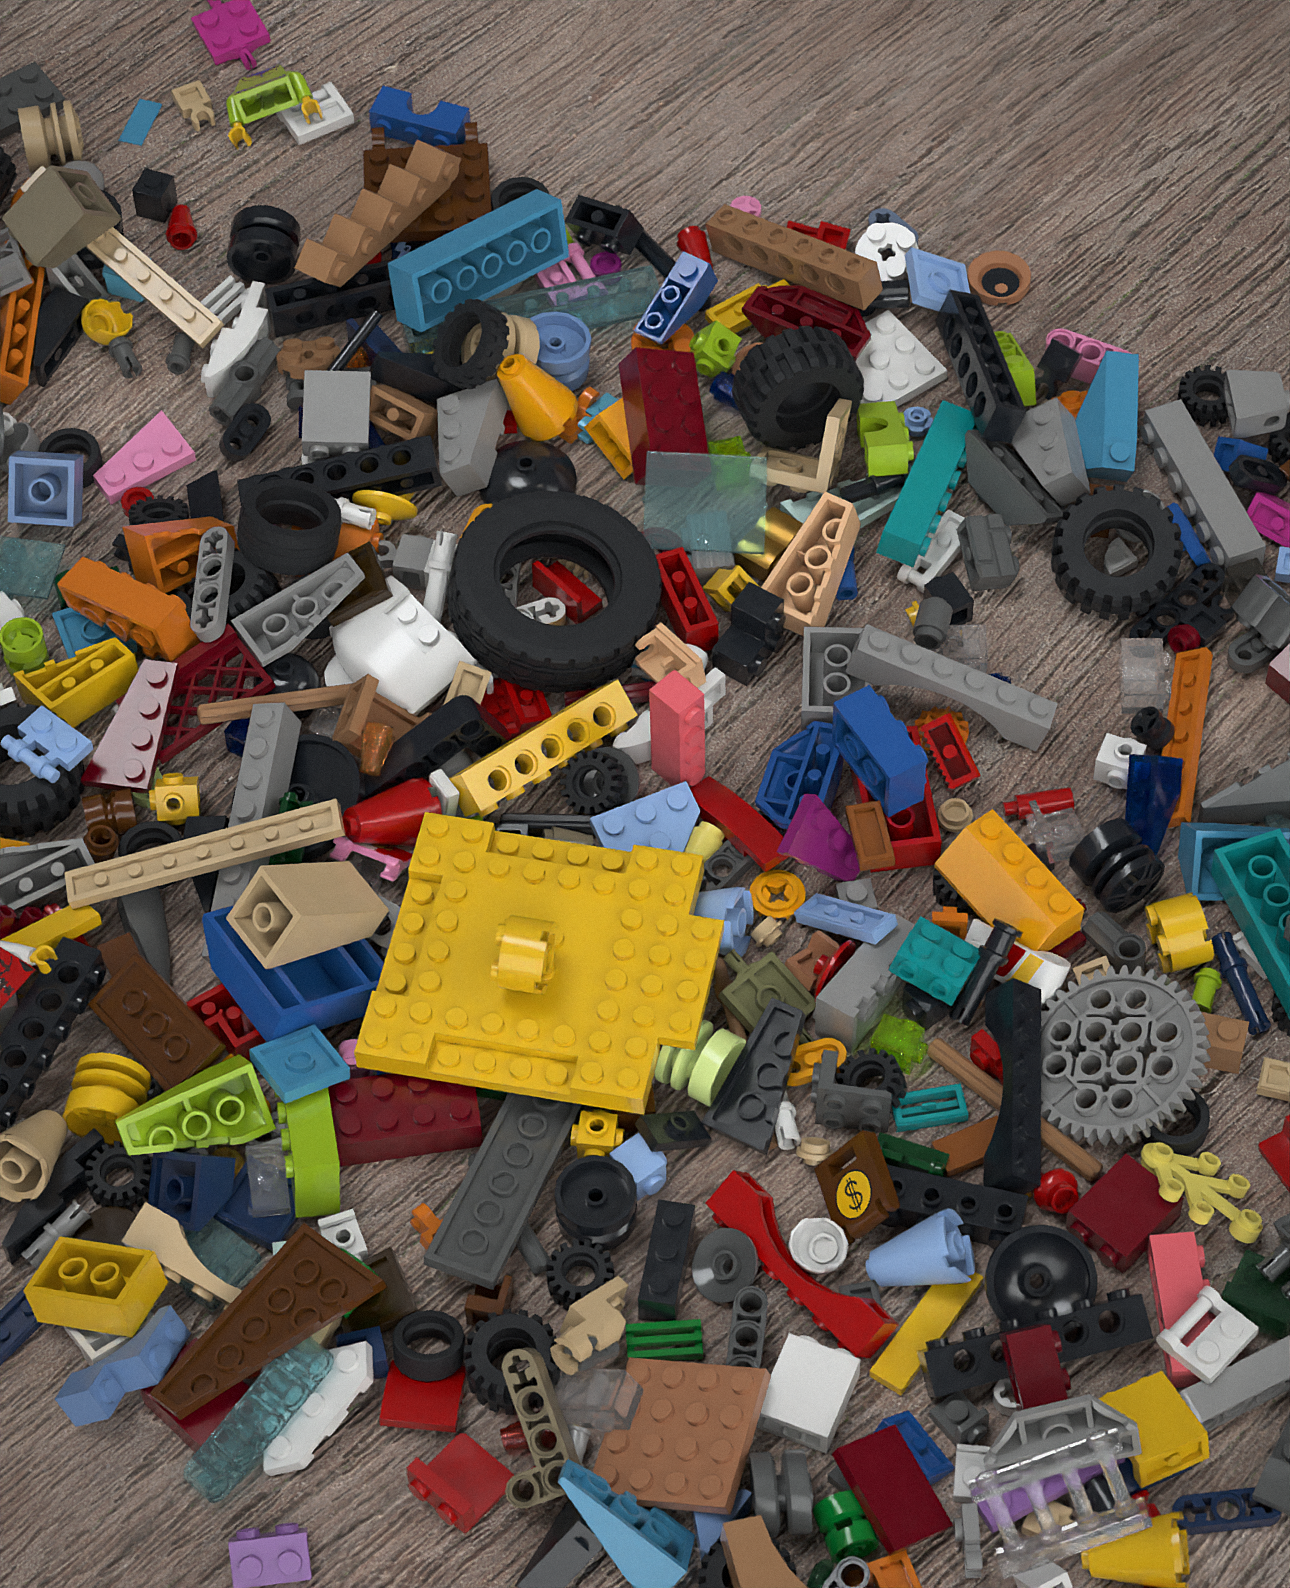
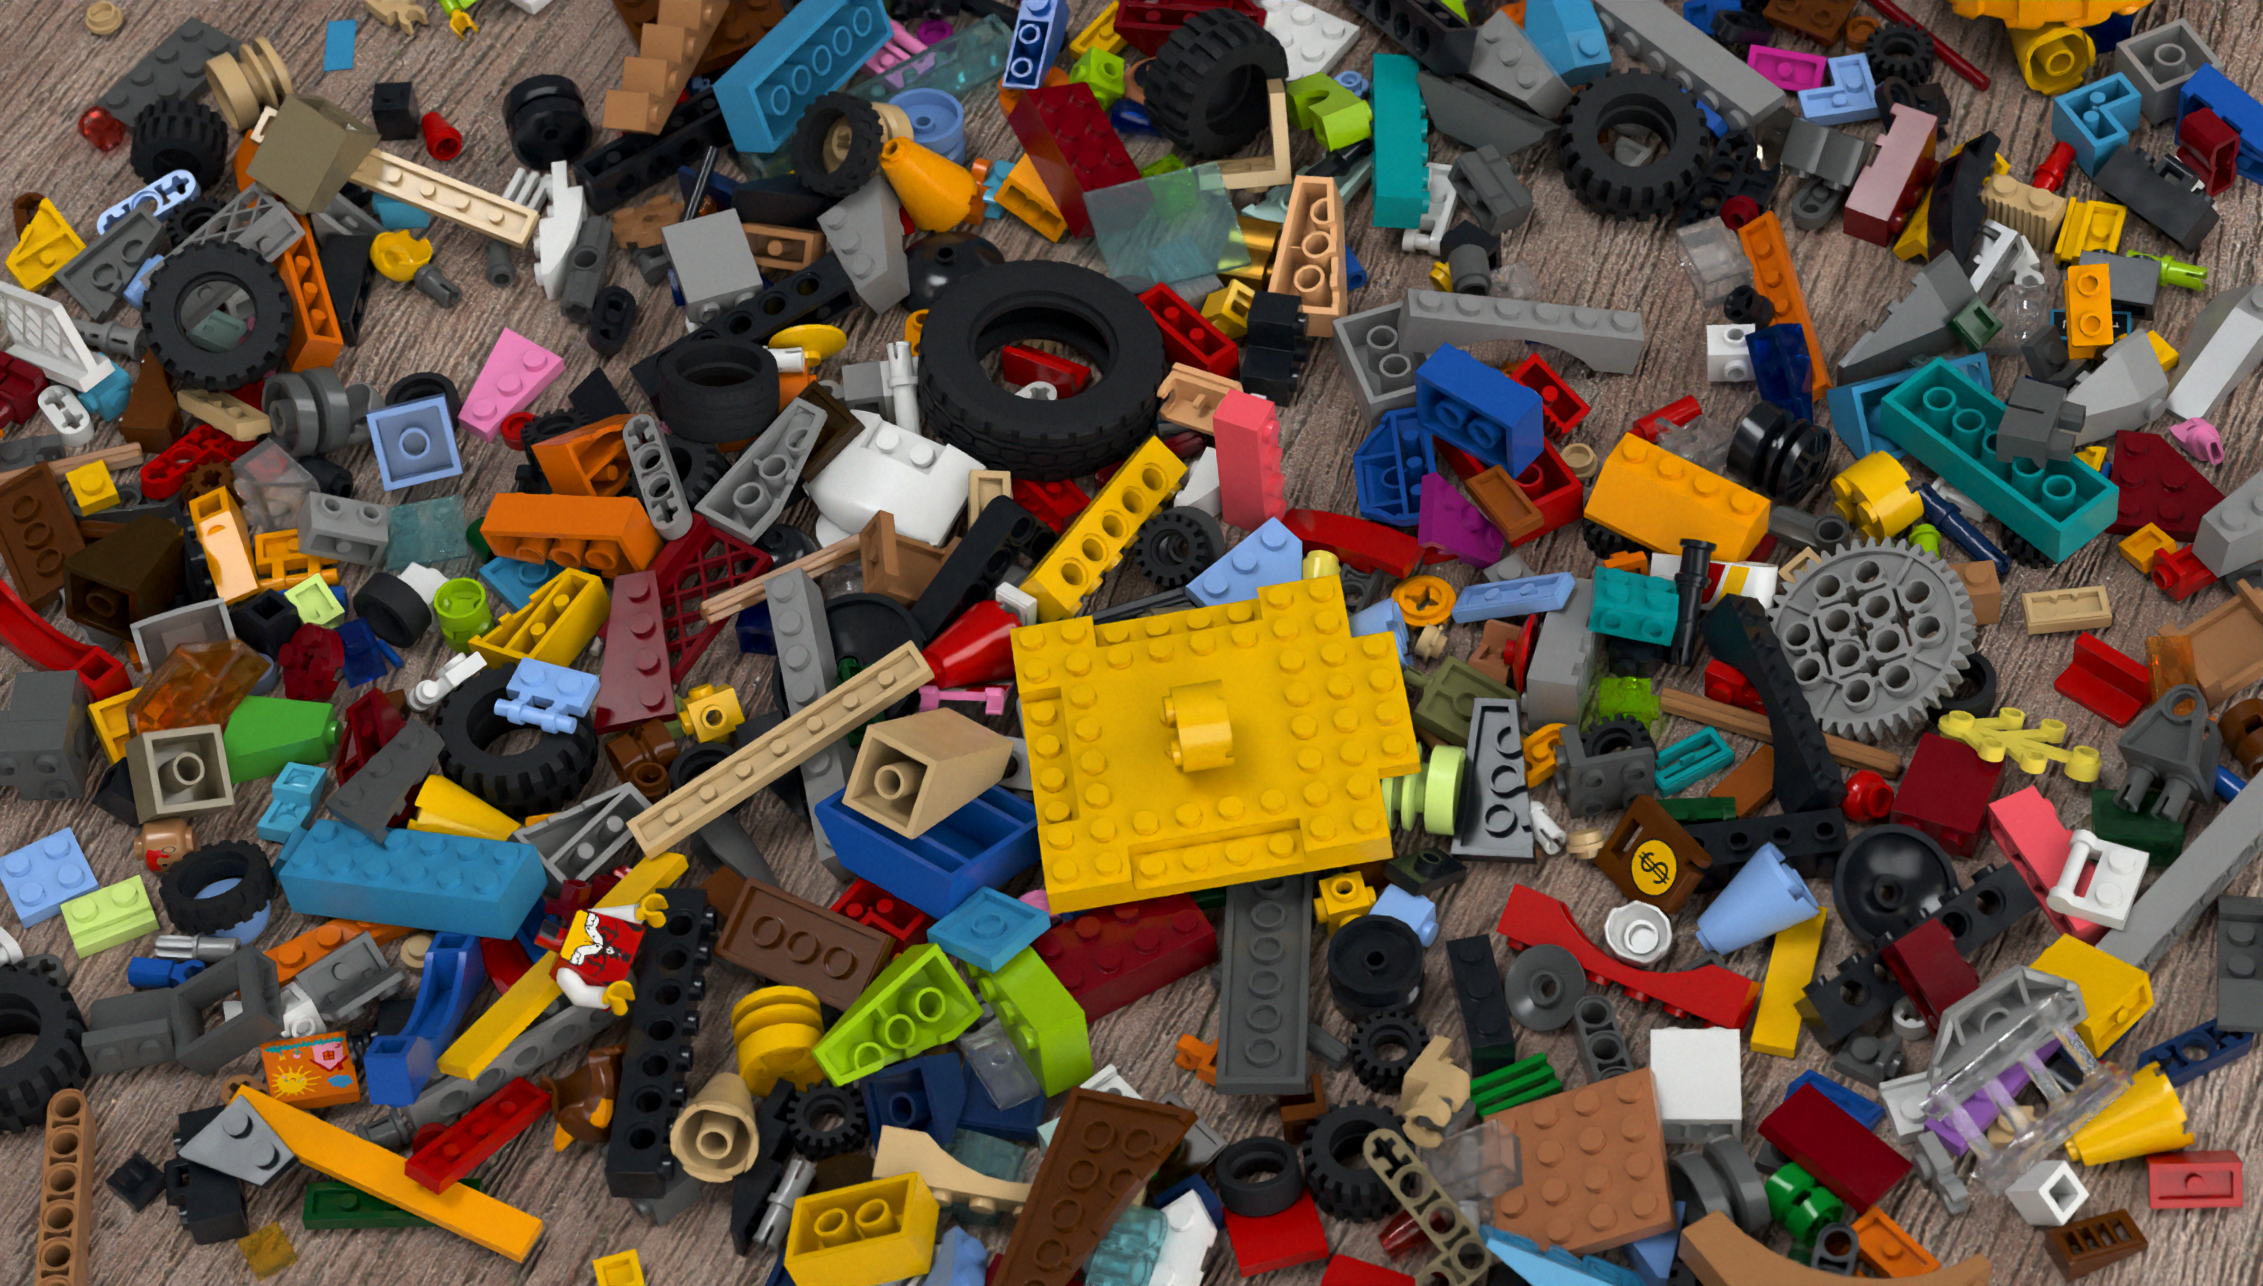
camera: 15 degrees left, 5 degrees down
(375, 746) = (920, 580): clear orange cone -> none

